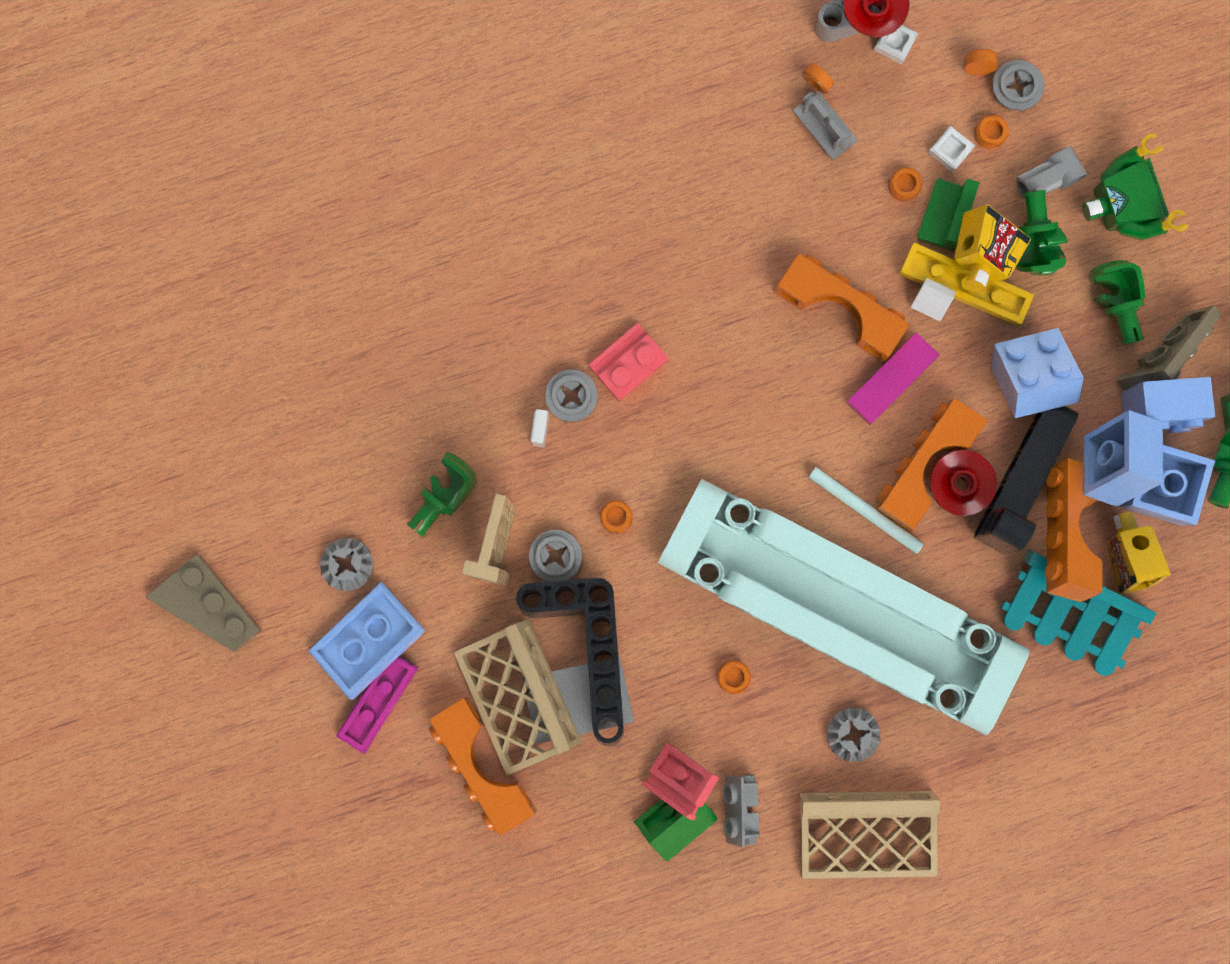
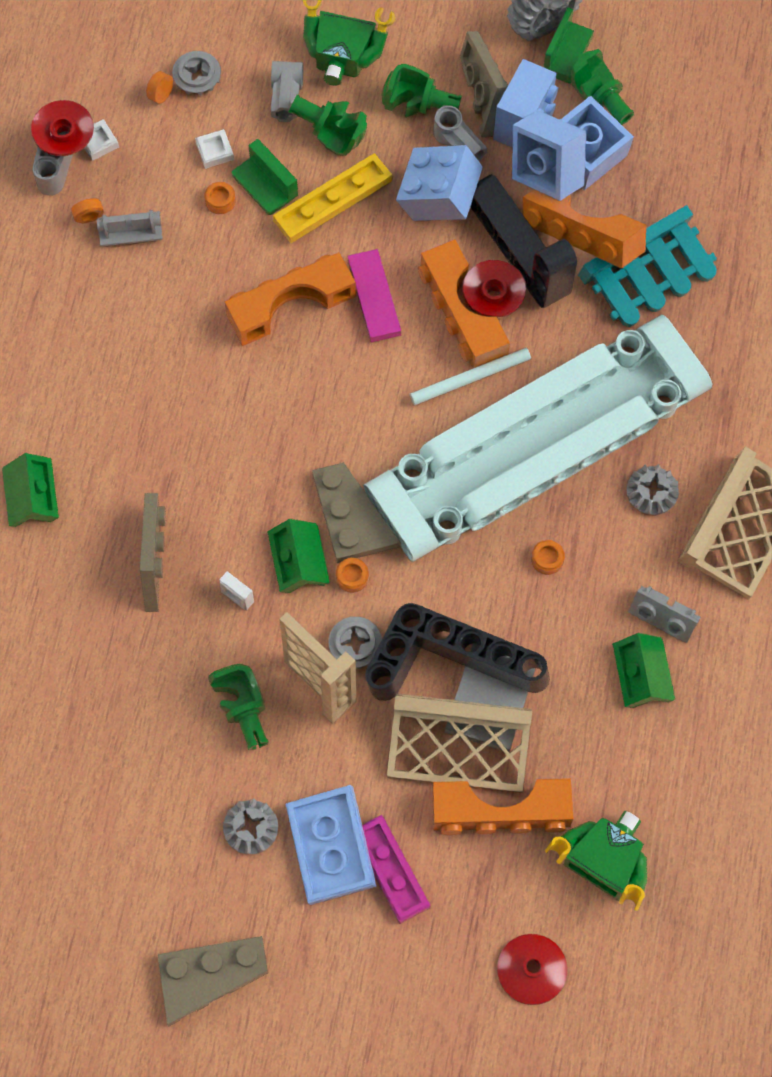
camera: 65 degrees left, 15 degrees down
(378, 864) = (527, 986): none -> red dish
(487, 882) = (606, 856): none -> green torso
(529, 198) = (30, 489): none -> green panel
(532, 334) = (152, 544): none -> dark tan wing
(571, 380) = (233, 540): light grey gear -> none
(605, 461) = (297, 555): none -> green panel
(628, 362) = (226, 490): coral plate -> none
(669, 482) = (350, 515): none -> dark tan wing
(680, 781) = (611, 643): coral plate -> none
(933, 299) = (329, 227): white tile -> none
(988, 247) = (314, 158): yellow torso -> none
(991, 132) = (220, 112): orange tile -> none
(1099, 363) = (458, 134): none -> light grey piece
(1136, 555) = (632, 193): yellow torso -> none

